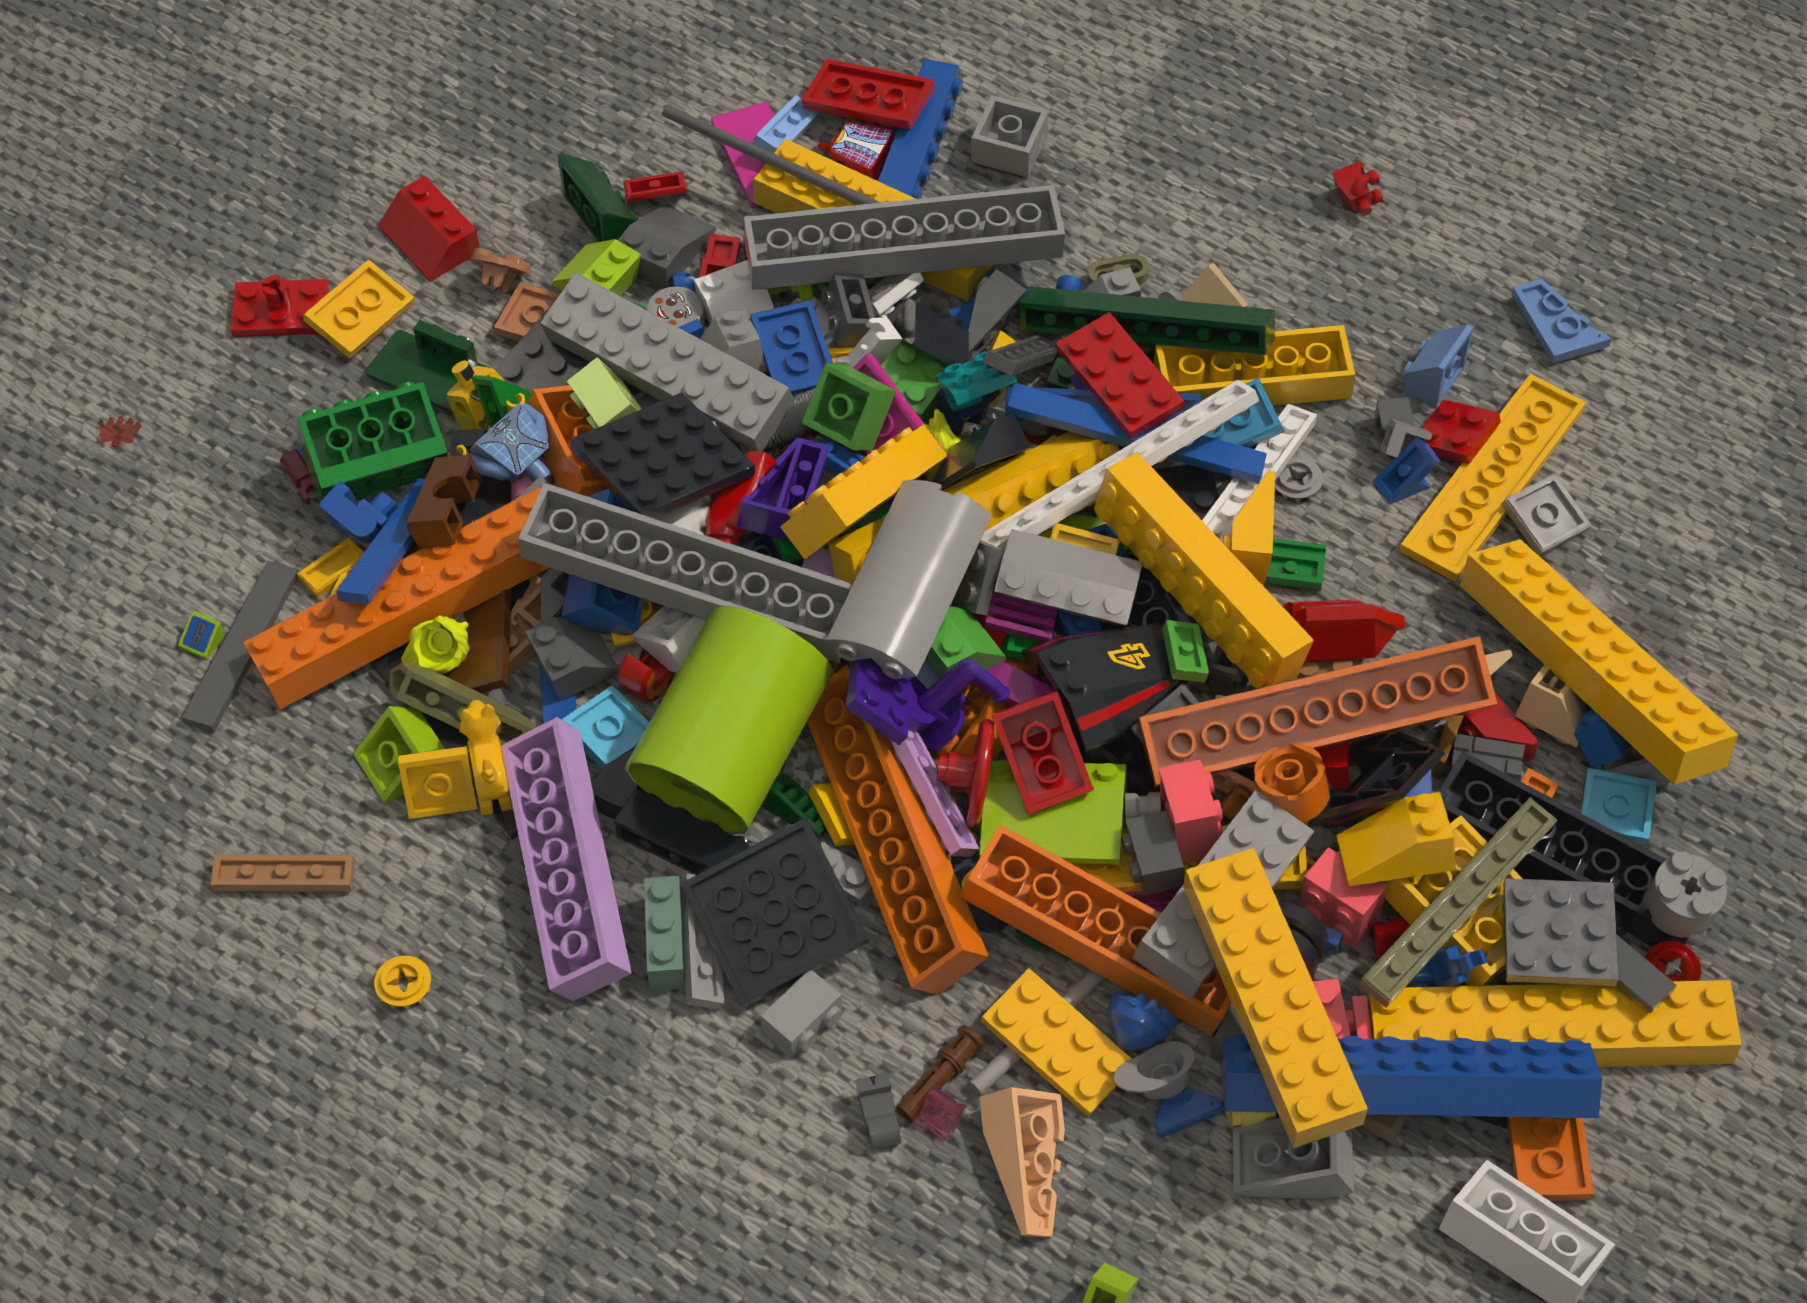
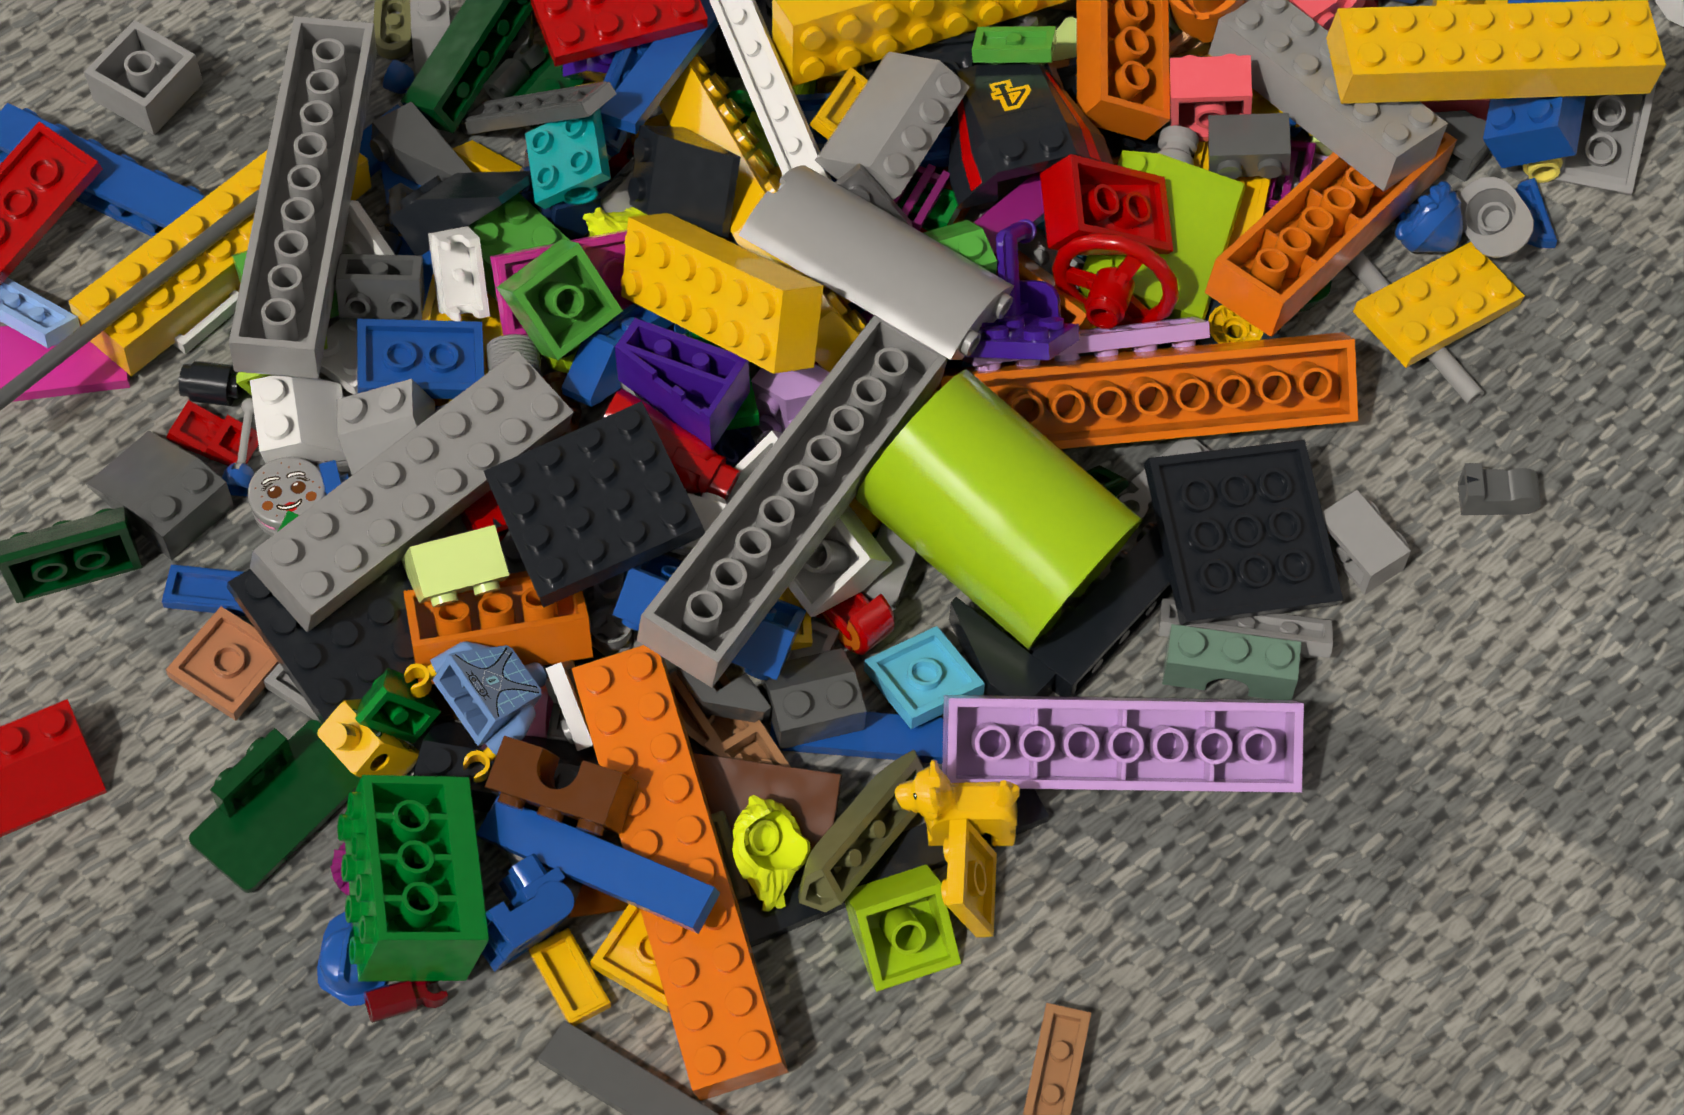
camera: 80 degrees left, 5 degrees up
(275, 306) = (84, 993): red plate -> none
(359, 309) = (138, 880): yellow plate -> none
(389, 975) = (1251, 959): yellow gear -> none
(500, 270) = (143, 688): nougat plate -> none
(606, 264) = (192, 565): lime slope -> none
(654, 186) = (65, 481): red slope -> none
(831, 814) = (1107, 458): yellow tile -> none
(859, 147) = (92, 242): torso -> none
(941, 1113) = (1507, 430): clear pink tile -> none
(949, 1062) = (1444, 411): reddish brown pin -> none
(1022, 1139) = (1540, 363): light nougat wedge -> none

